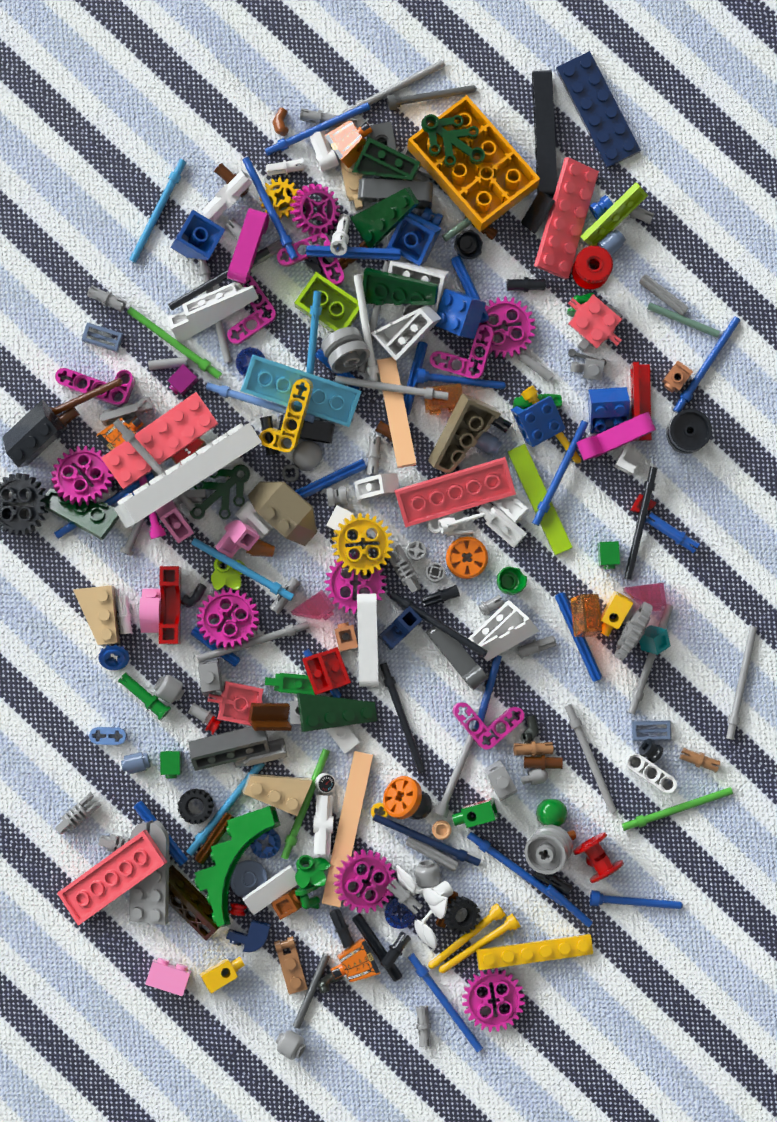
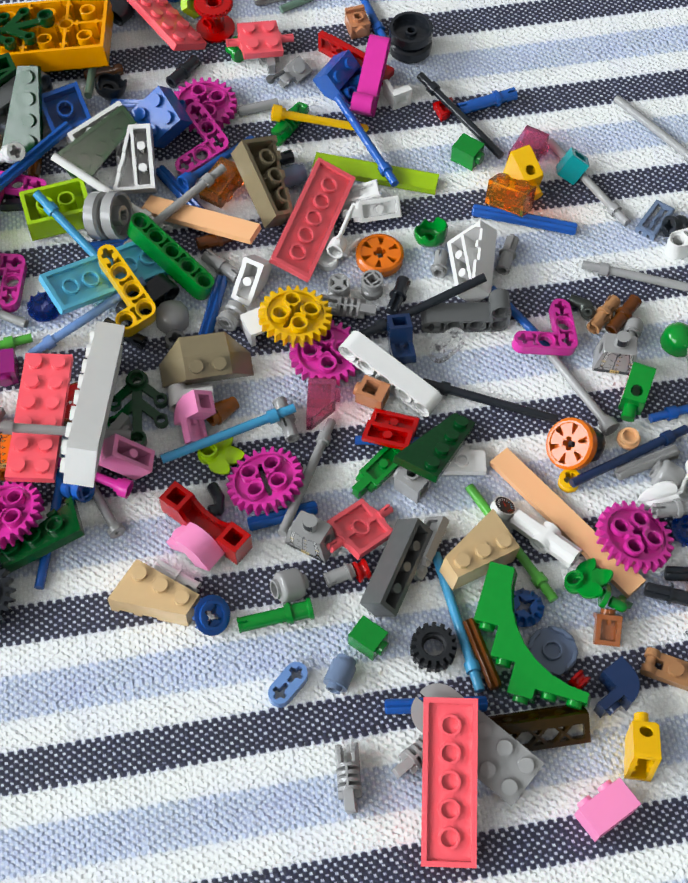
camera: 50 degrees left, 25 degrees down
(270, 716) = (394, 507): reddish brown panel -> none
(270, 890) = (580, 633): white tile -> none
(342, 411) = (170, 256): none -> green beam
(537, 211) = (133, 24): black slope -> none
(538, 421) = (306, 125): blue bracket -> none
(633, 631) = (555, 162): light grey gear -> none

